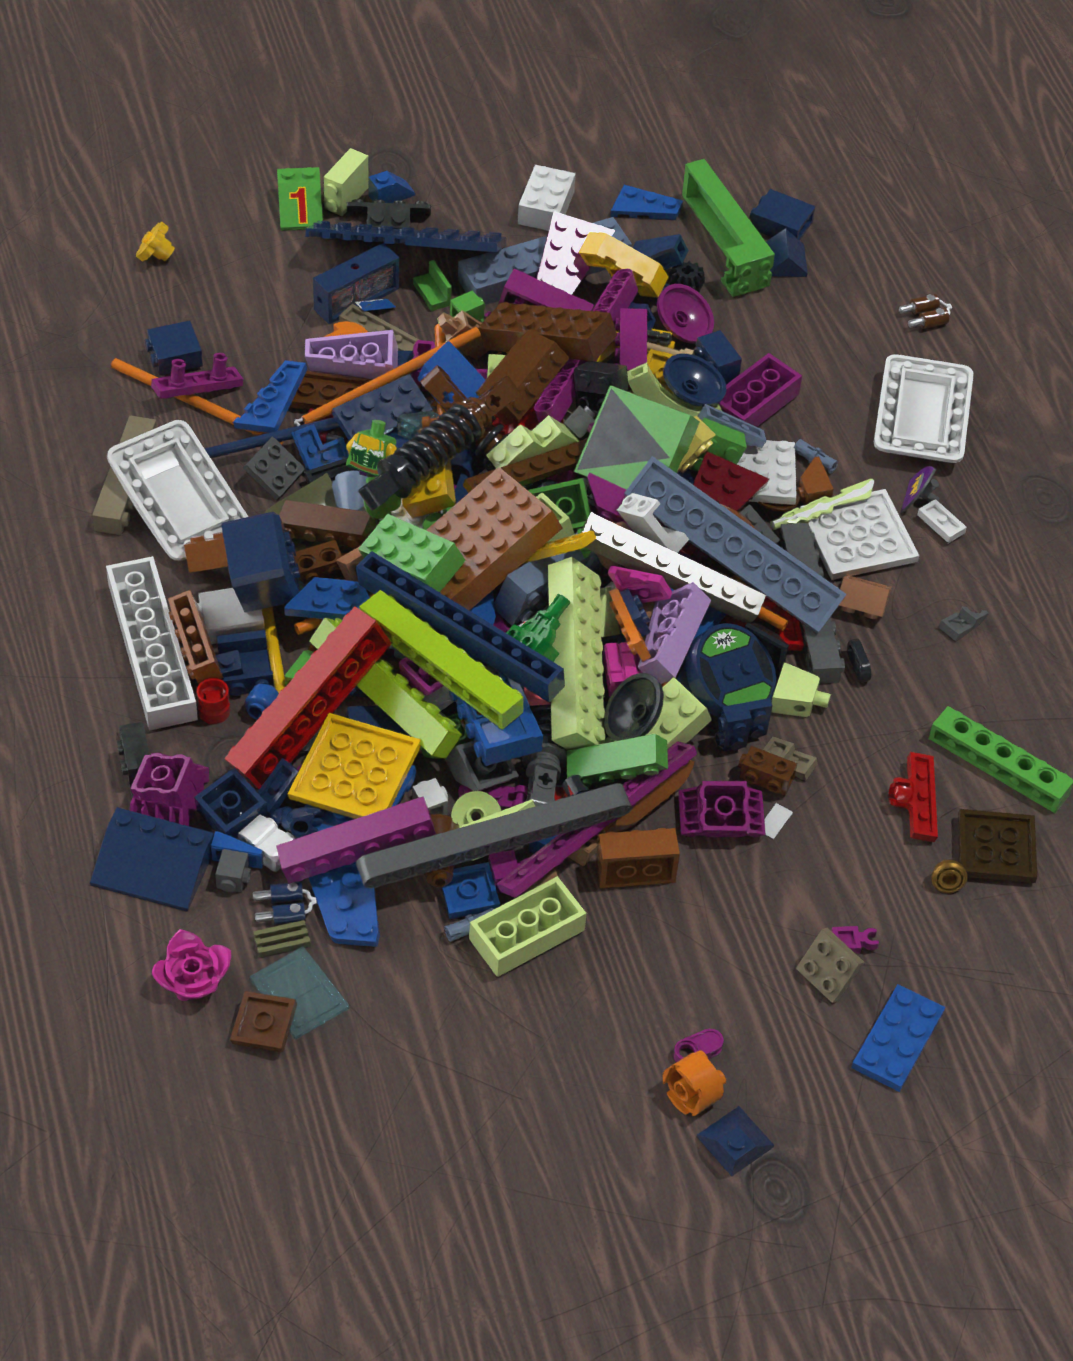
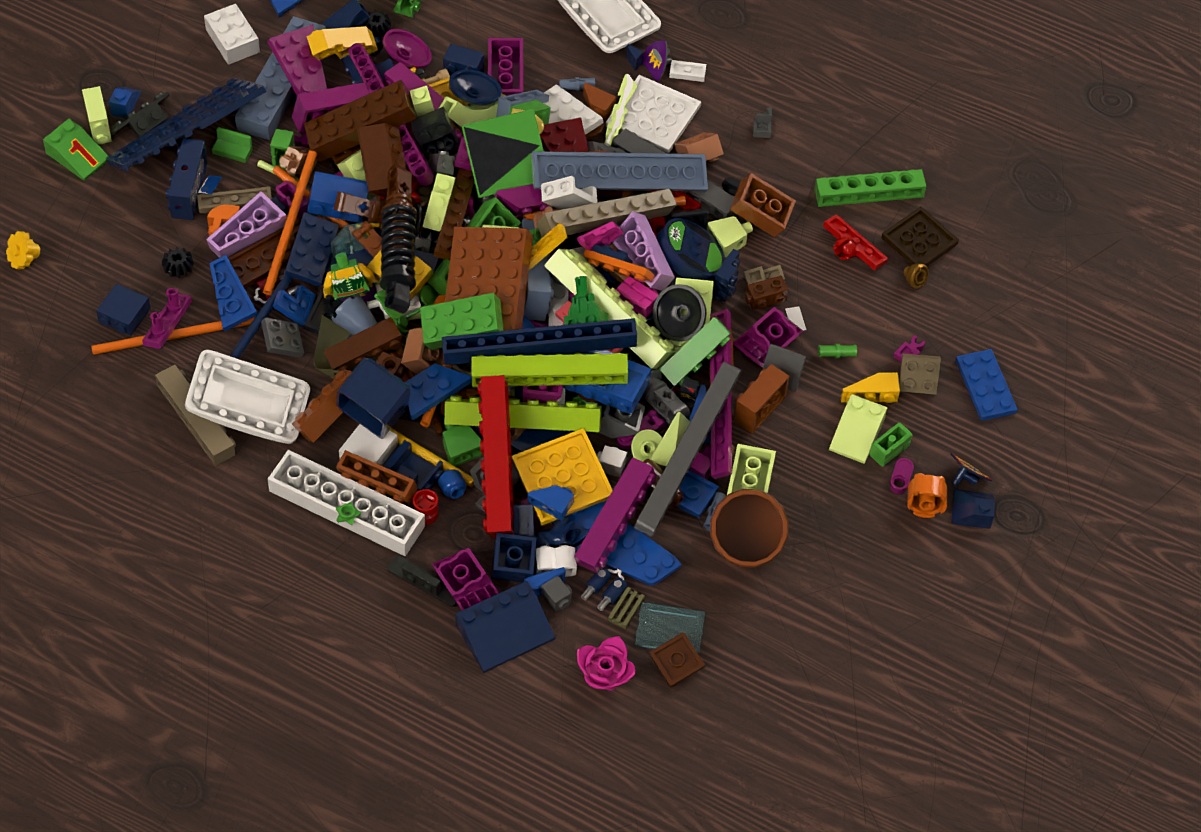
camera: 45 degrees left, 5 degrees up
(127, 642) = (347, 508): none -> bright green plate
(267, 345) = (177, 262): none -> black gear
(314, 779) = (552, 500): none -> blue slope
(453, 950) = (749, 528): none -> dark orange piece
(617, 349) = (422, 101): none -> yellowish green brick
(696, 847) = (788, 362): none -> dark grey slope
(707, 967) = (858, 428): none -> yellowish green slope
(717, 1006) = (890, 444): none -> bright green brick
(770, 1098) = (964, 474): none -> dark blue shield
(771, 944) = (876, 388): none -> yellow slope
(777, 880) = (837, 350): none -> bright green pin
(858, 686) = (762, 205): none -> dark orange brick
(902, 472) = (634, 56): none -> dark blue slope

